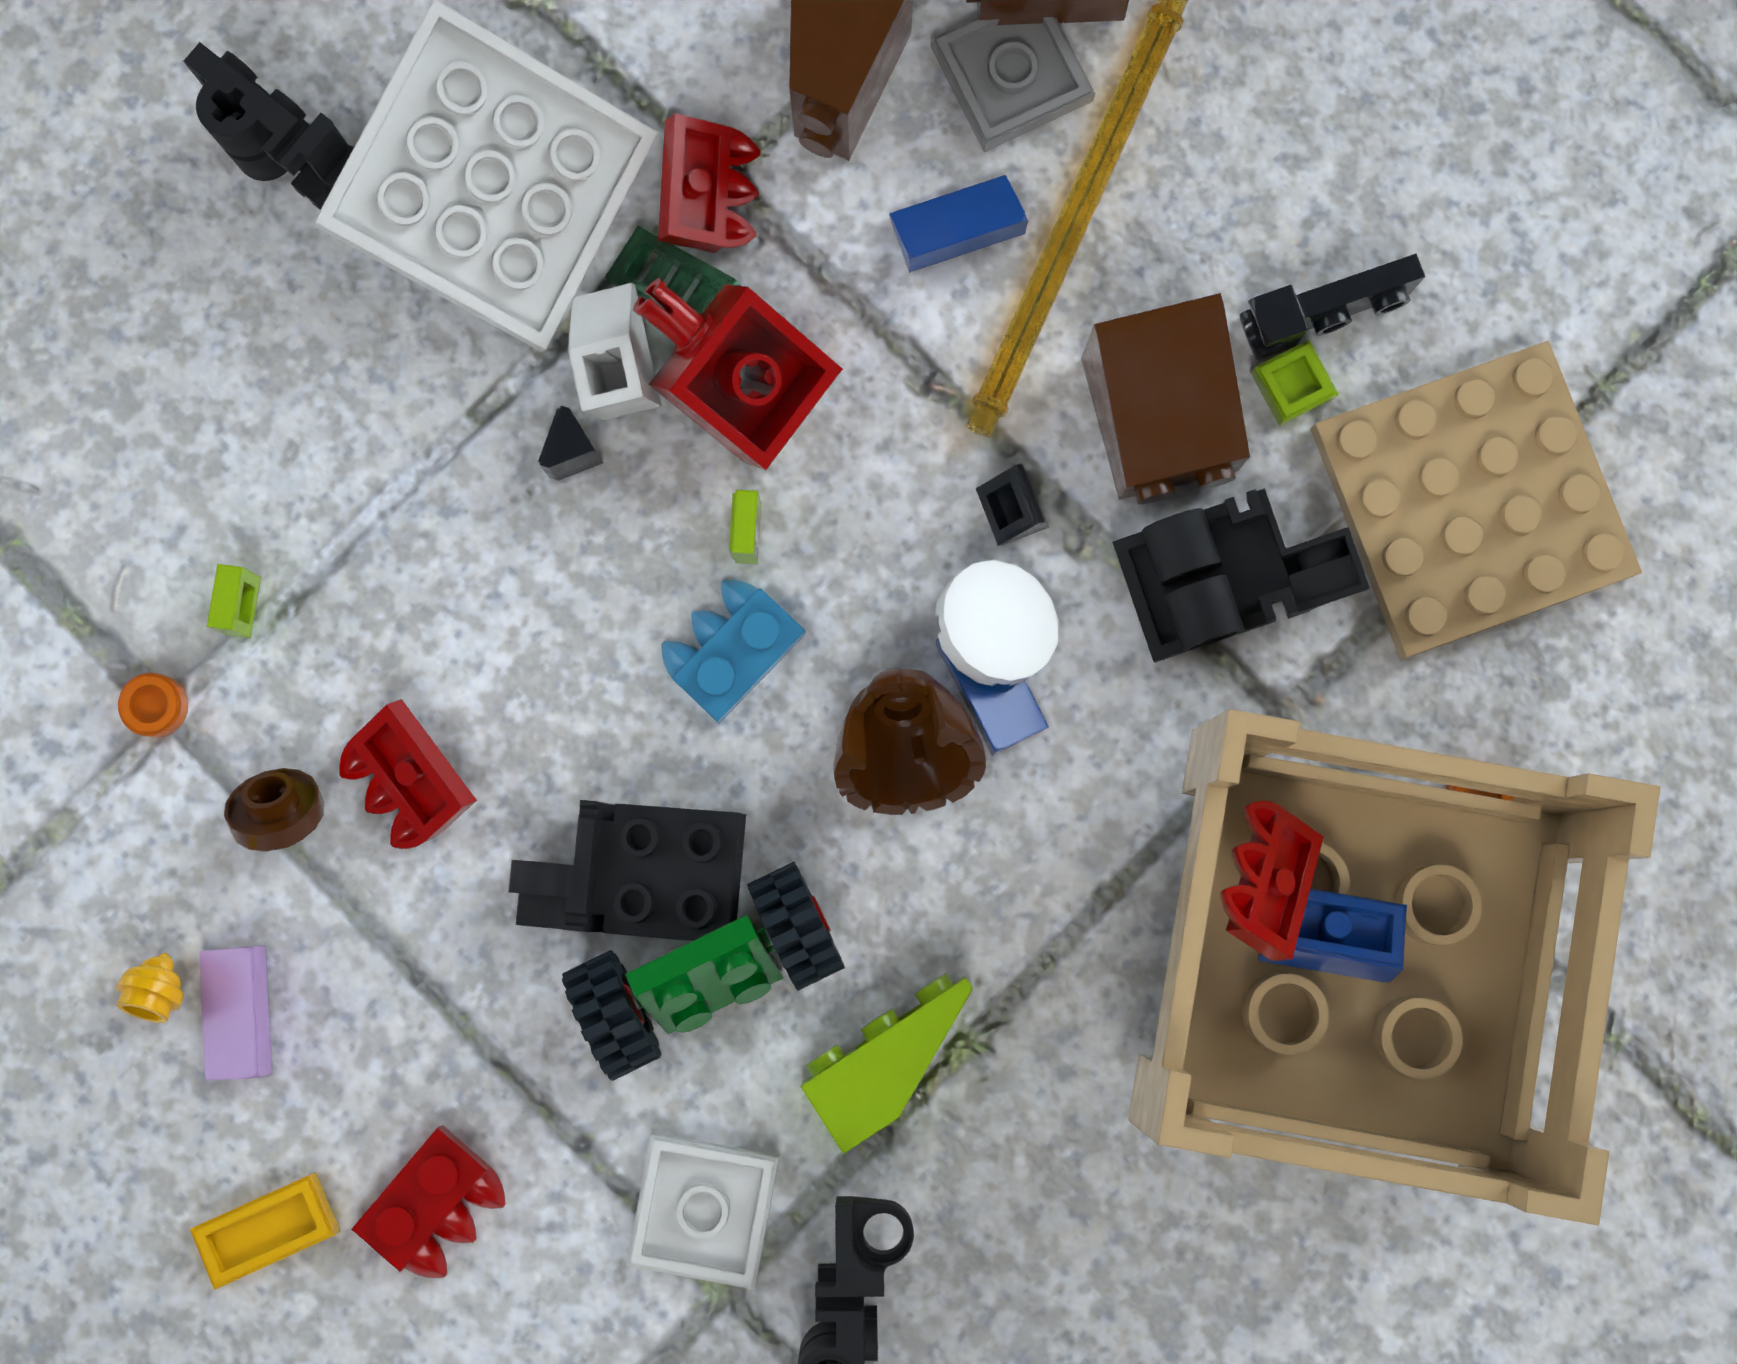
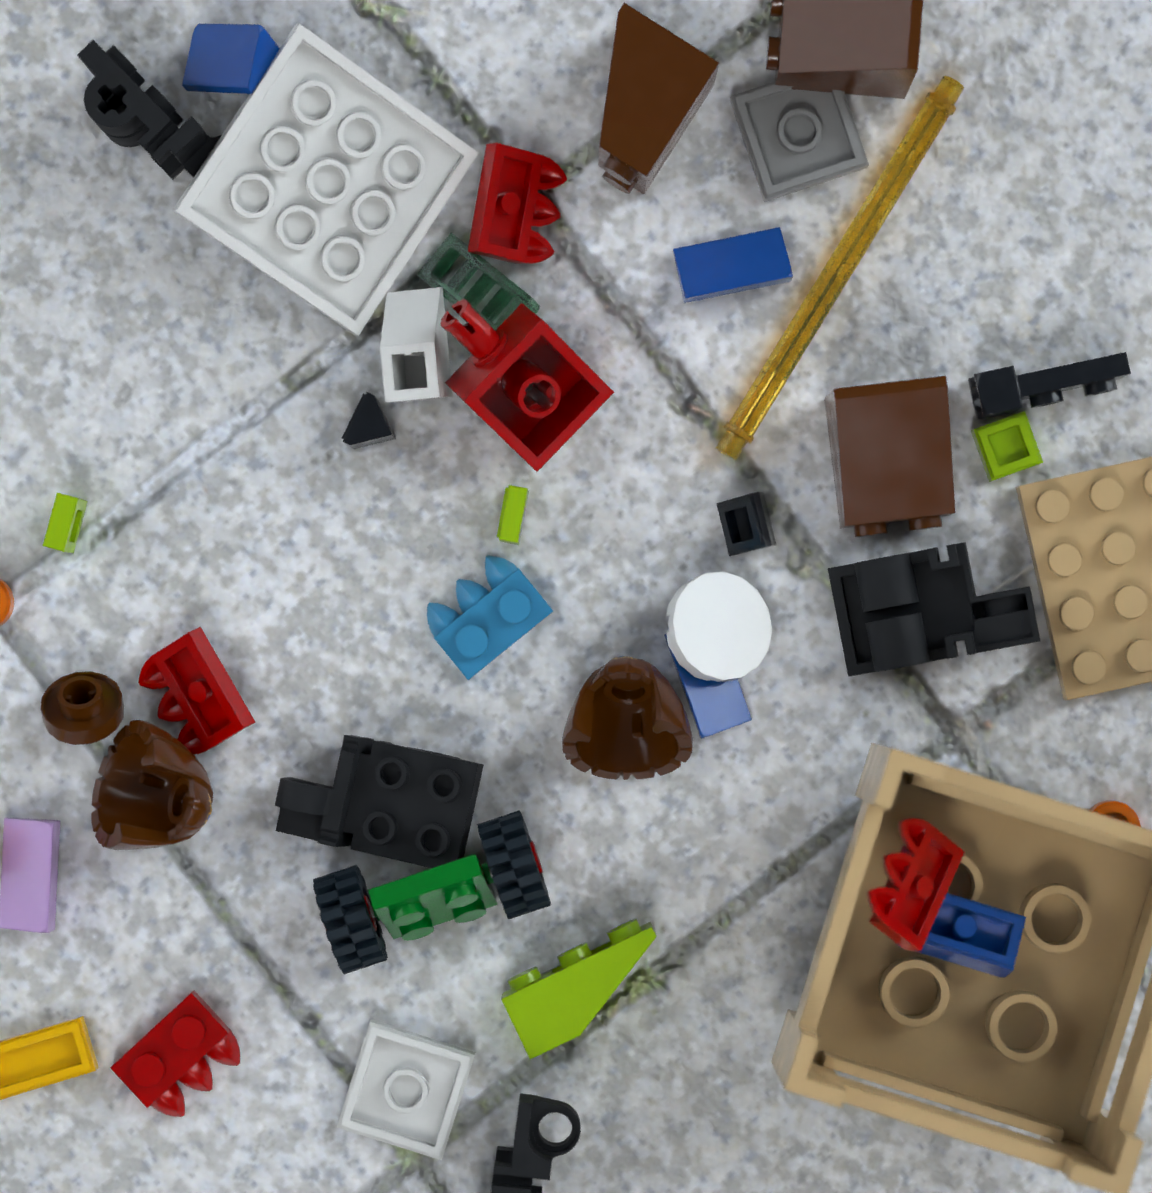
camera: 10 degrees right, 5 degrees up
(362, 55) = (228, 58): none -> blue slope
(362, 895) = (149, 791): none -> reddish brown hair

